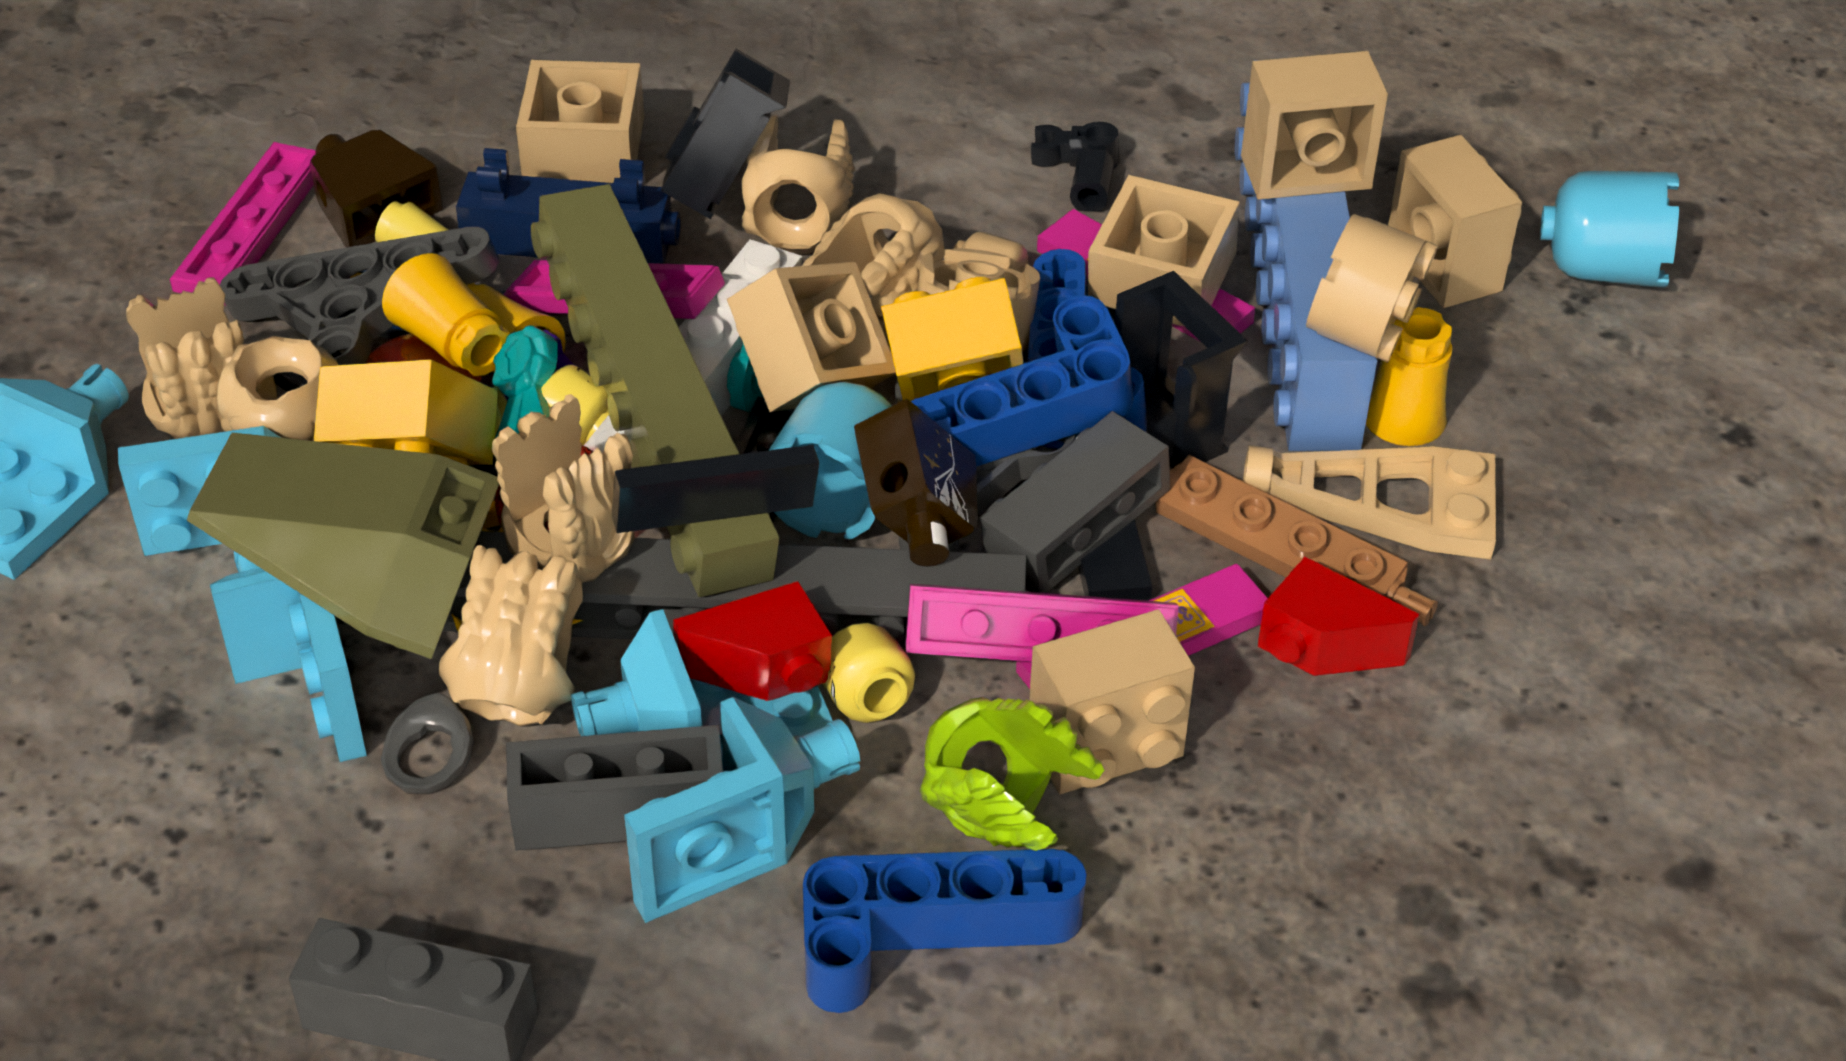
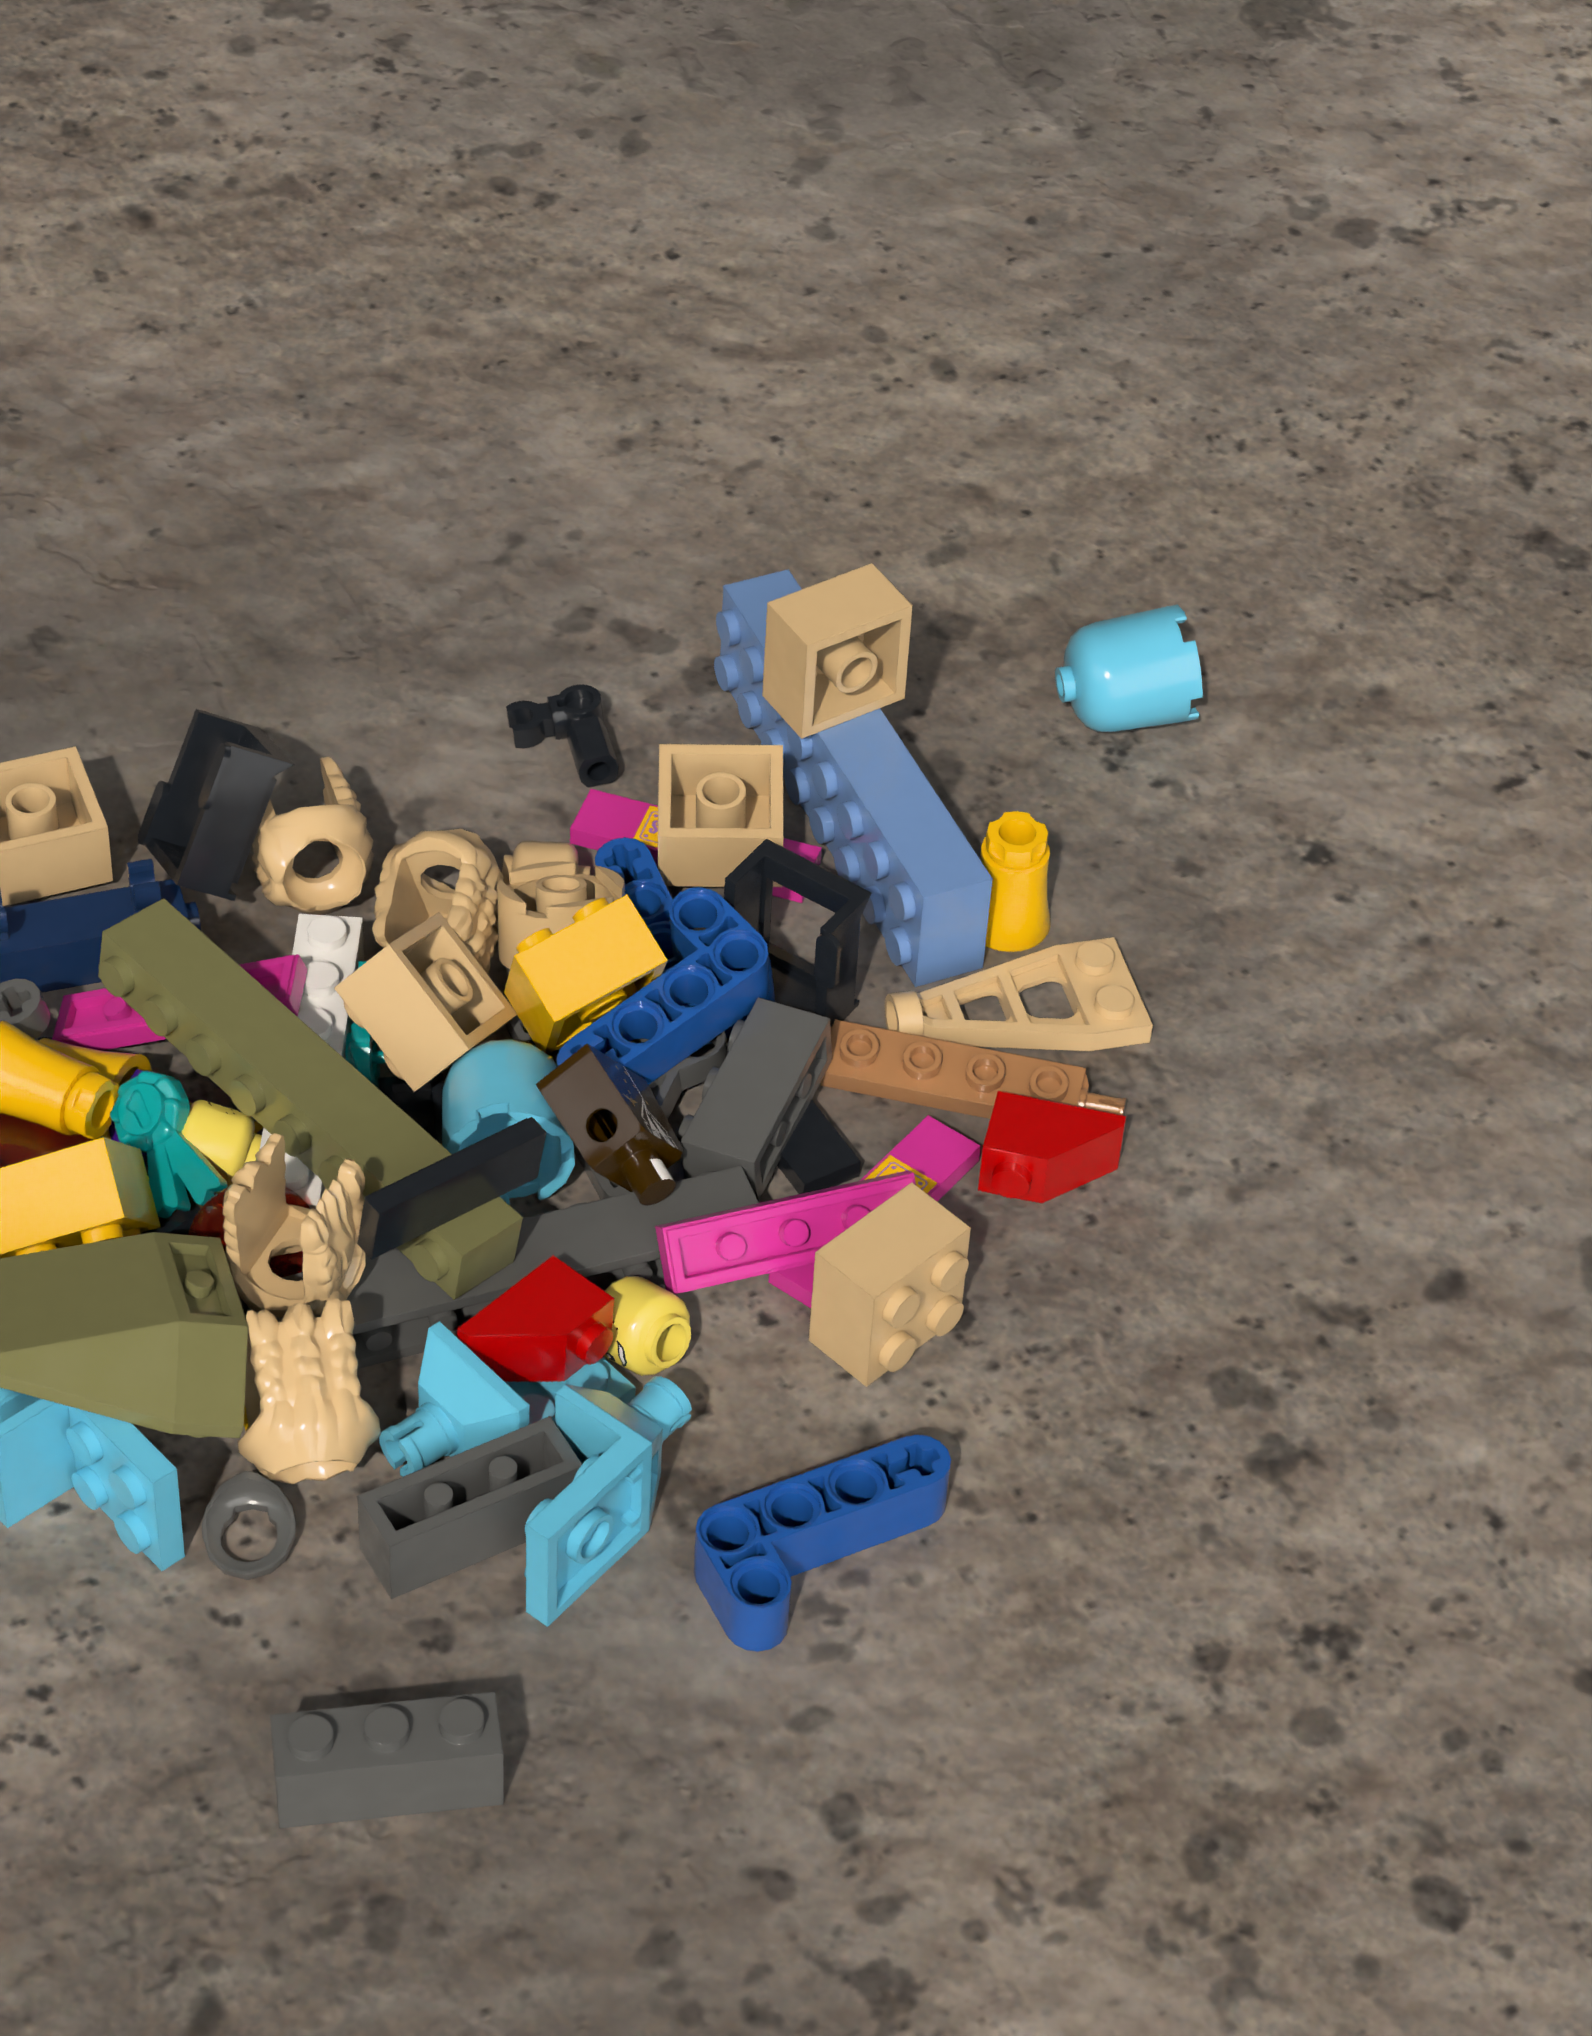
camera: 25 degrees left, 0 degrees up
(1033, 749) = (838, 1347): lime piece -> none
(1370, 286) = (969, 808): tan brick -> none
(1463, 207) = (977, 706): tan brick -> none

